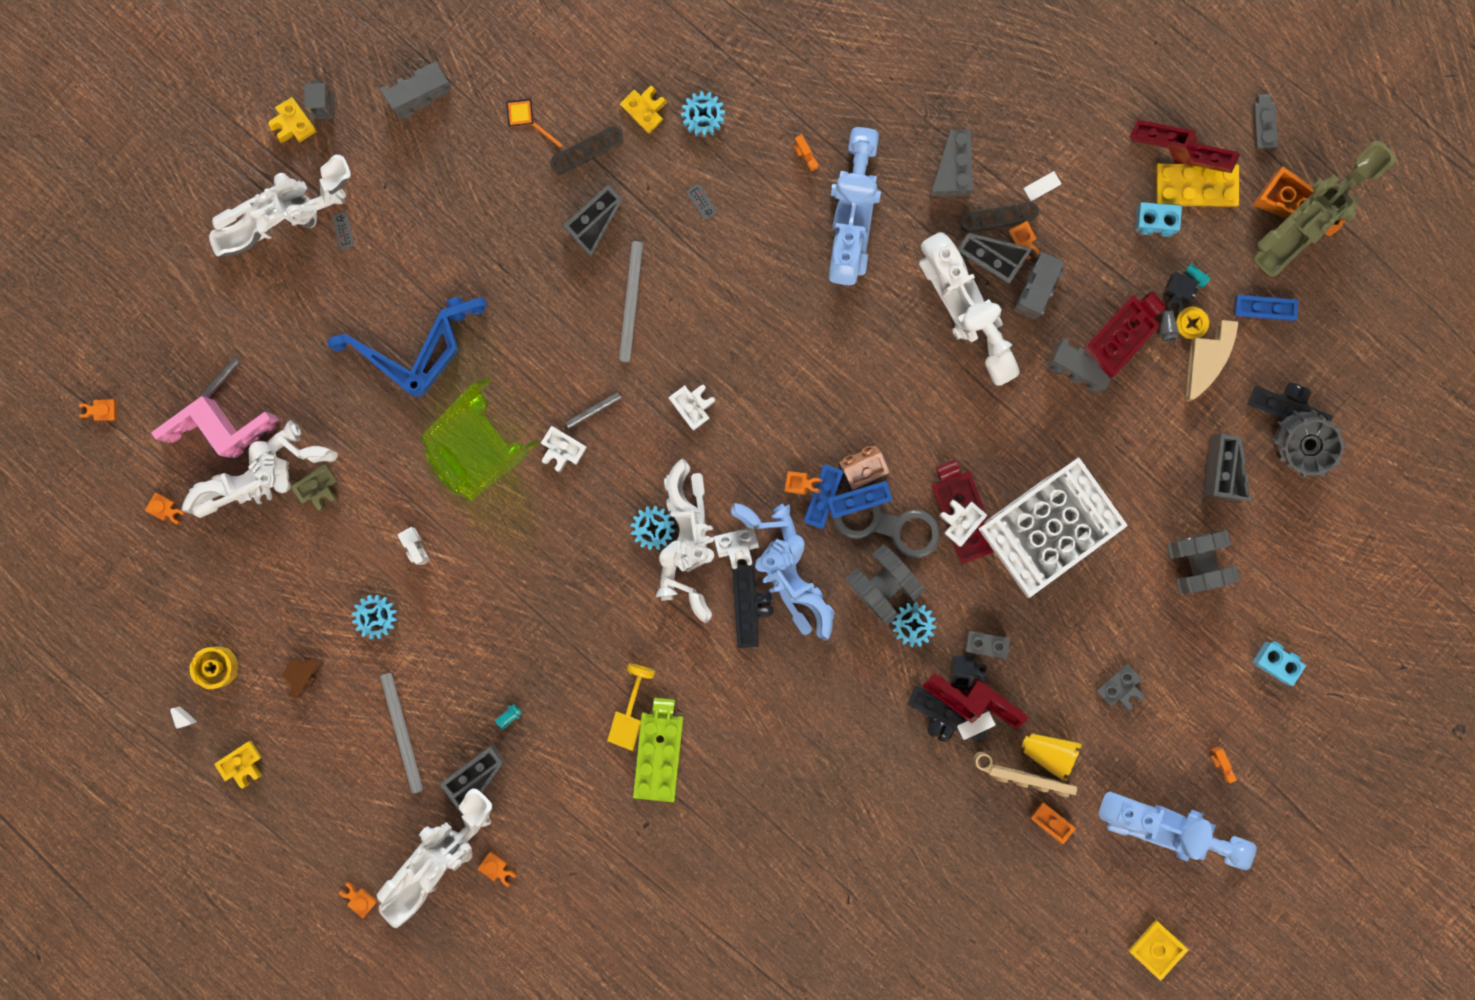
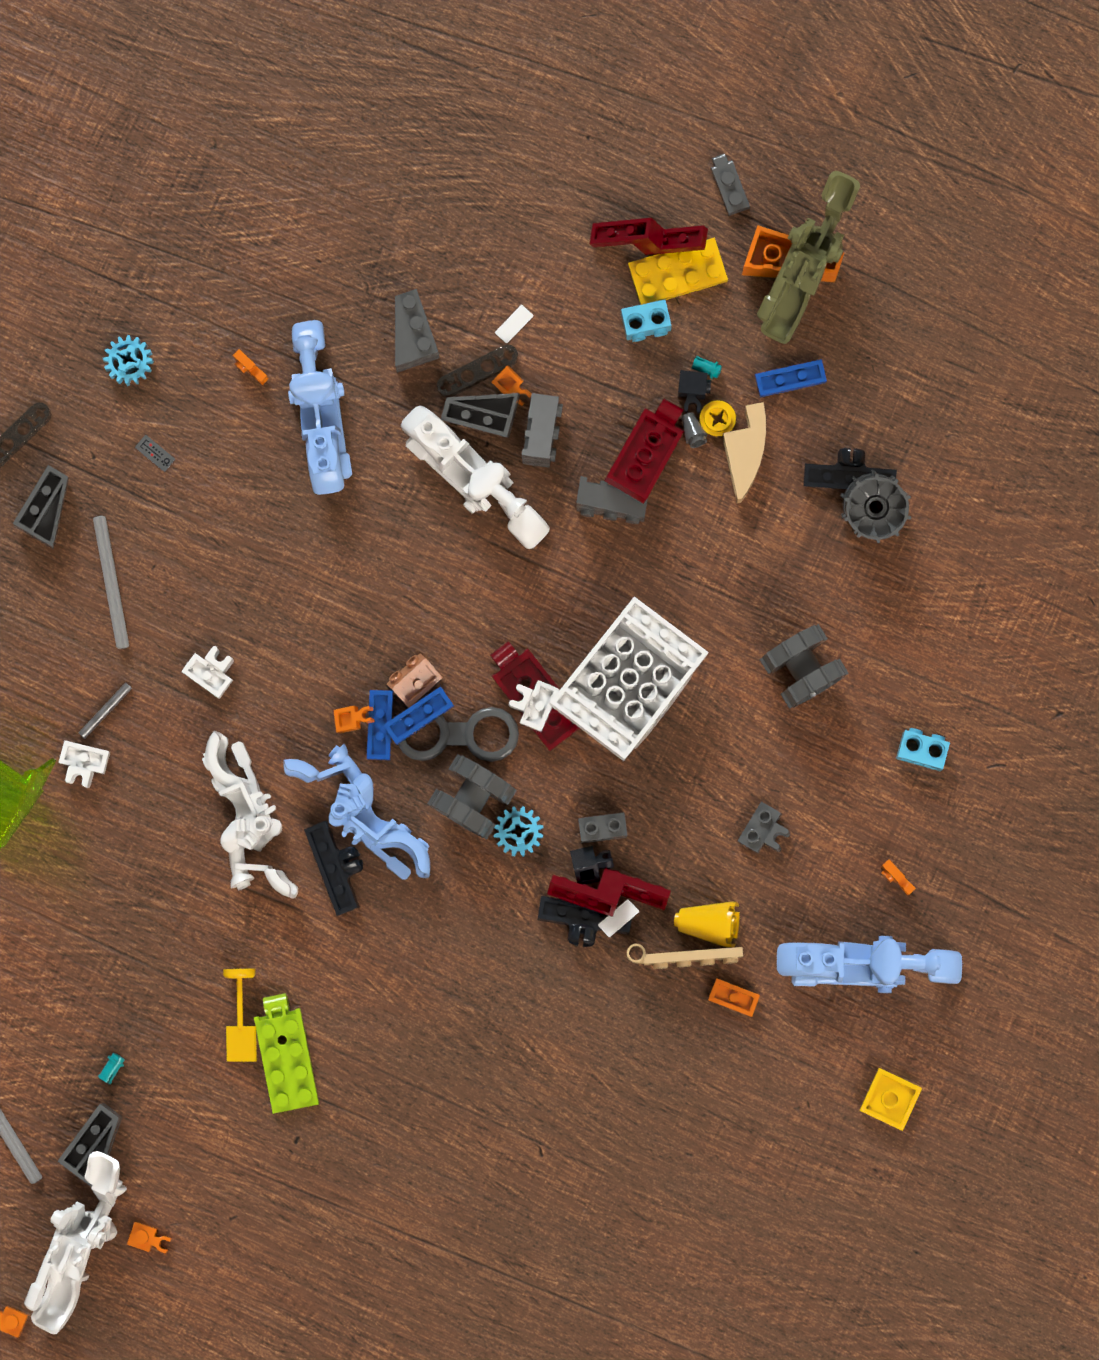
camera: 10 degrees left, 5 degrees down
(644, 109) = (64, 373): yellow plate -> none
(661, 525) = (216, 810): medium azure gear -> none
(737, 545) = (302, 806): white plate -> none
(1226, 469) = (800, 562): dark grey wedge -> none

